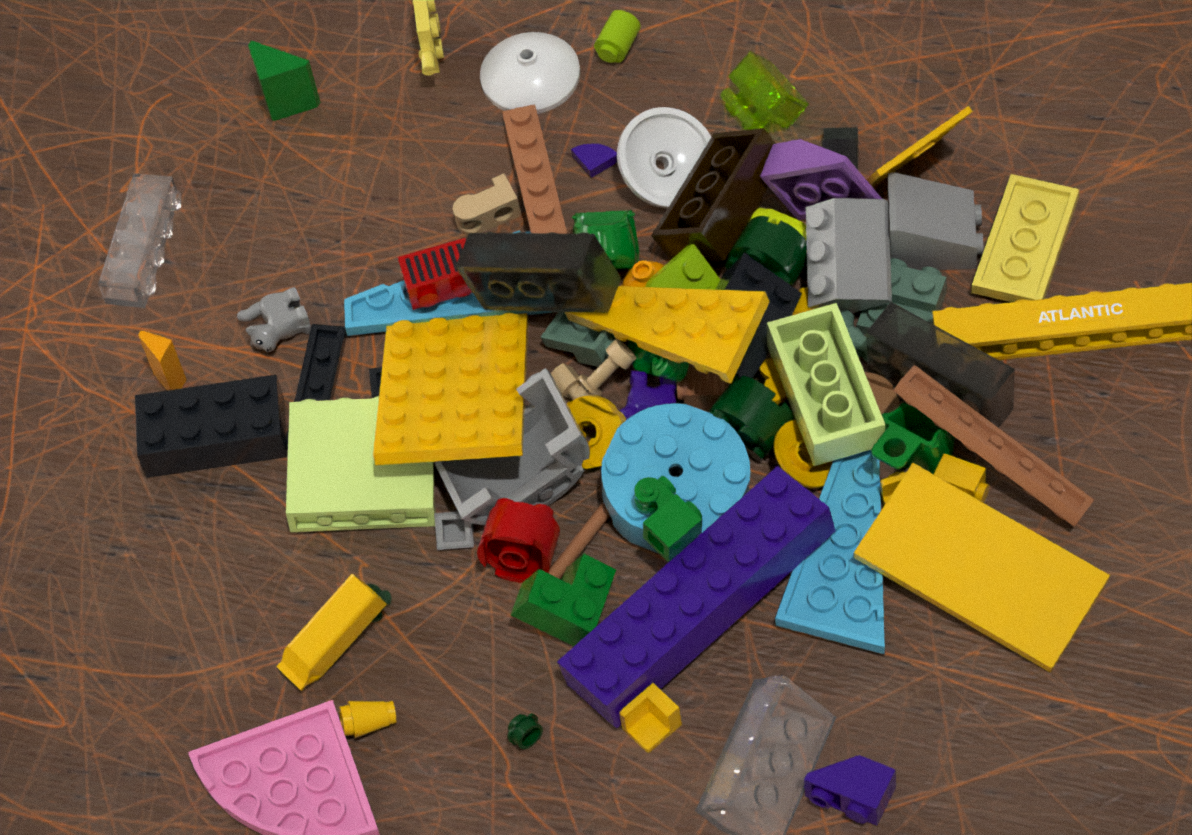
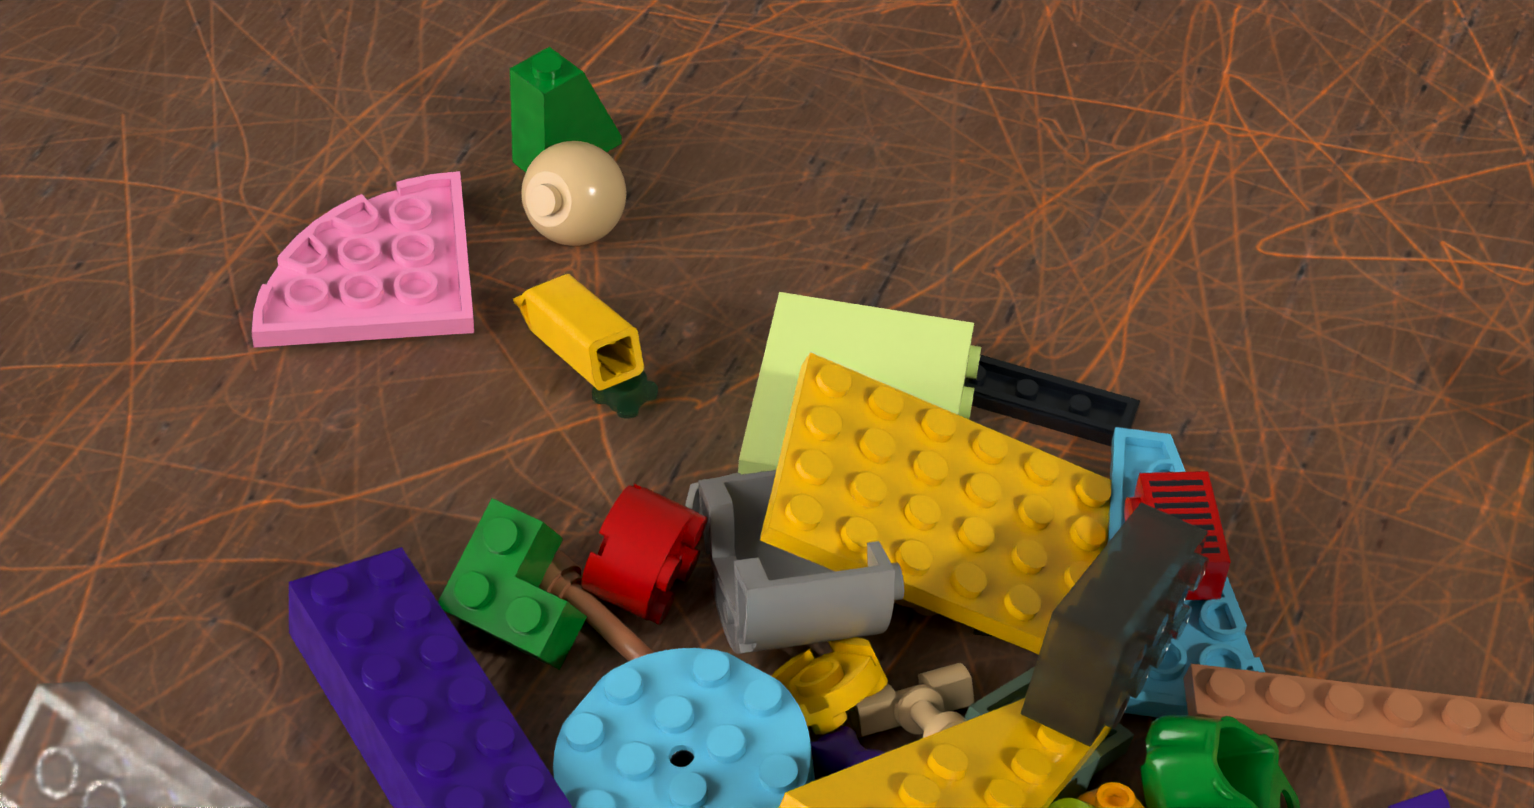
camera: 90 degrees right, 10 degrees down
(135, 695) = (555, 105): none -> green slope
(139, 240) = (1333, 233): clear brick -> none
(163, 360) = (1086, 210): light orange slope -> none
(204, 666) = (573, 193): none -> tan brick
(210, 426) = (979, 253): black brick -> none
(282, 317) = (1154, 362): light grey animal -> none
(366, 716) = (436, 351): yellow cone -> none
(487, 208) = (1325, 642): tan leg -> none
(524, 731) = (333, 520): dark green plate -> none
(650, 718) = (283, 677): yellow panel -> none
(673, 520) = (569, 712): green brick -> none

